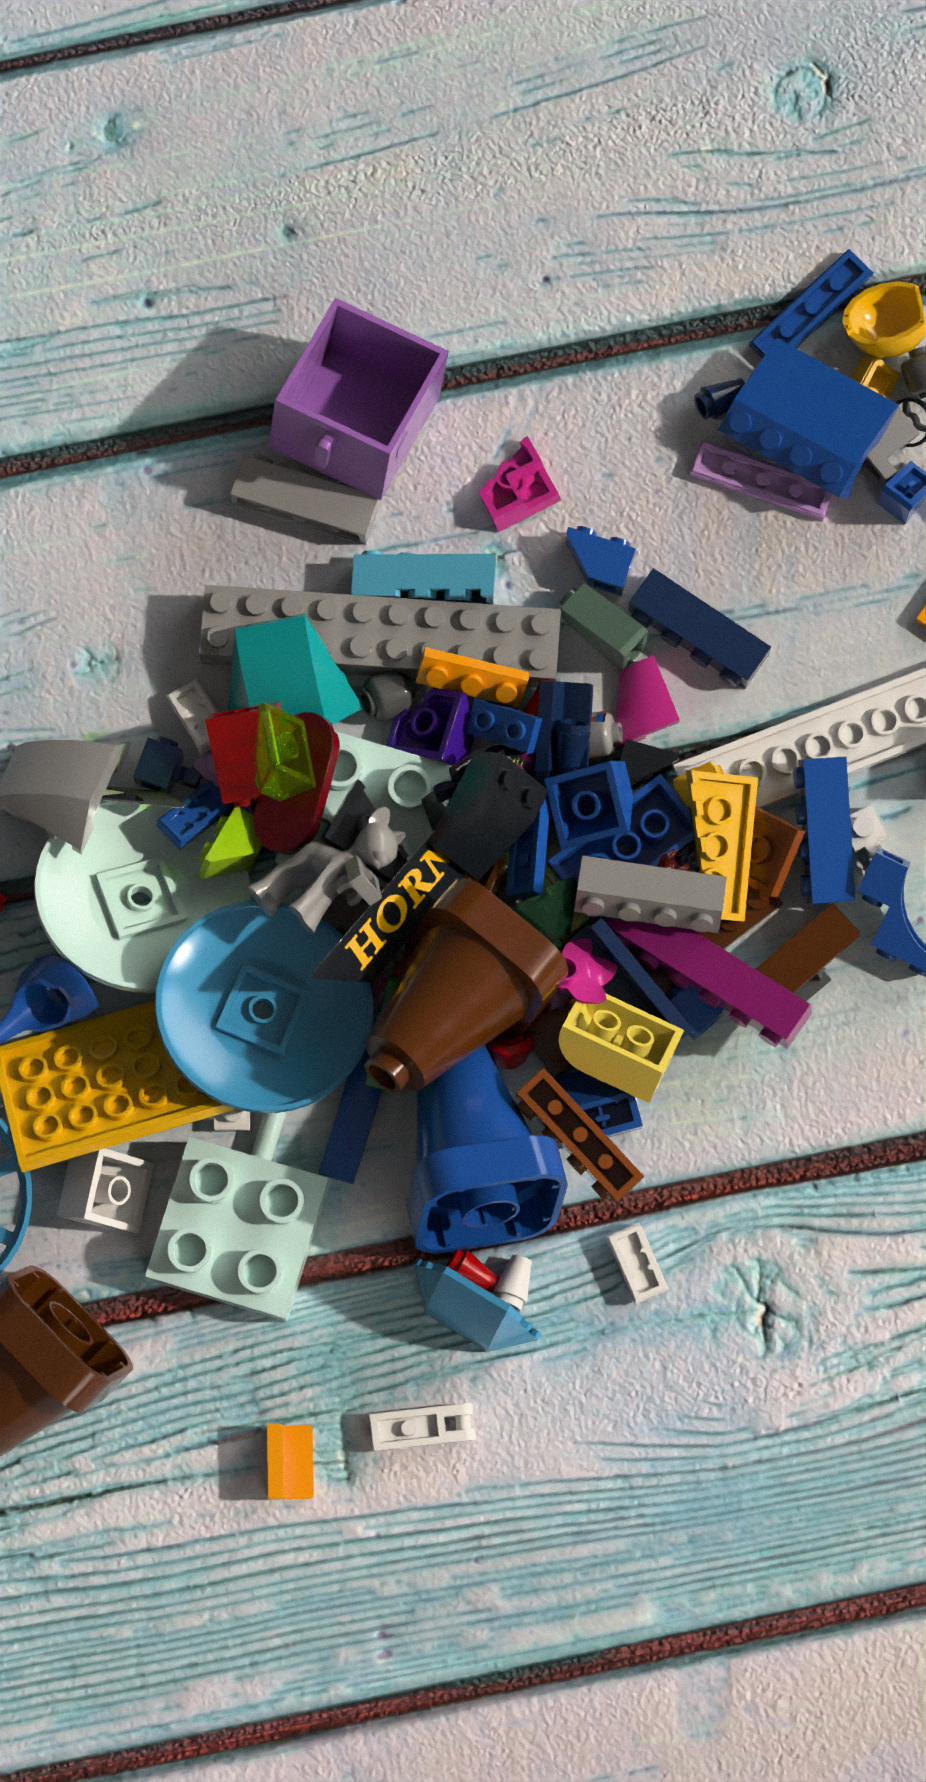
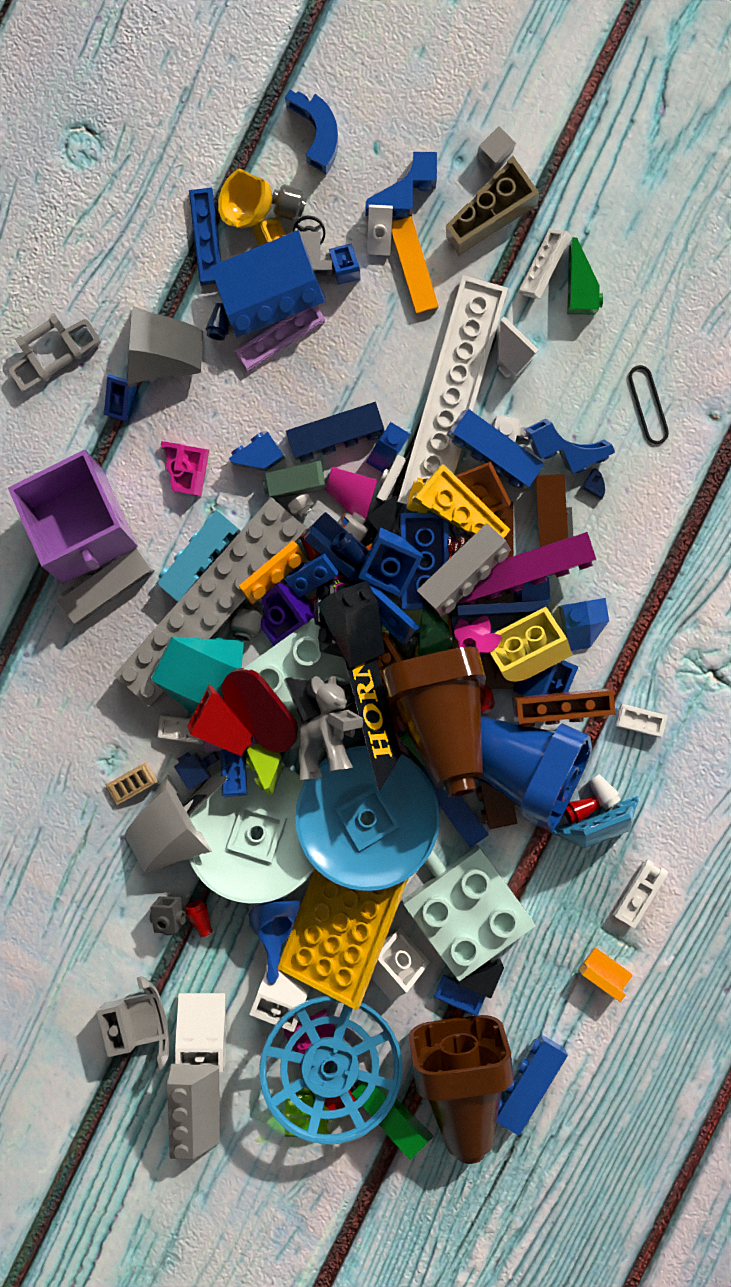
camera: 55 degrees left, 10 degrees up
(78, 1469) = (530, 1083): none -> blue brick
(112, 720) = (146, 771): none -> tan slope
(125, 1299) = (458, 996): none -> blue plate
(168, 1312) = (484, 978): none -> black slope
(282, 754) = (240, 708): clear neon green slope -> none
(393, 1166) = (498, 809): none -> reddish brown slope
(509, 213) = (45, 373): none -> light grey bar
(540, 349) = (118, 397): none -> blue slope
(579, 653) = (301, 505): none -> white plate
(638, 353) = (162, 347): none -> dark grey wedge
(694, 735) = (389, 478): none -> white plate
(703, 1100) = (583, 622): none -> blue slope
(728, 706) = (388, 447): none -> blue slope
(881, 987) = (595, 484): none -> dark blue tile

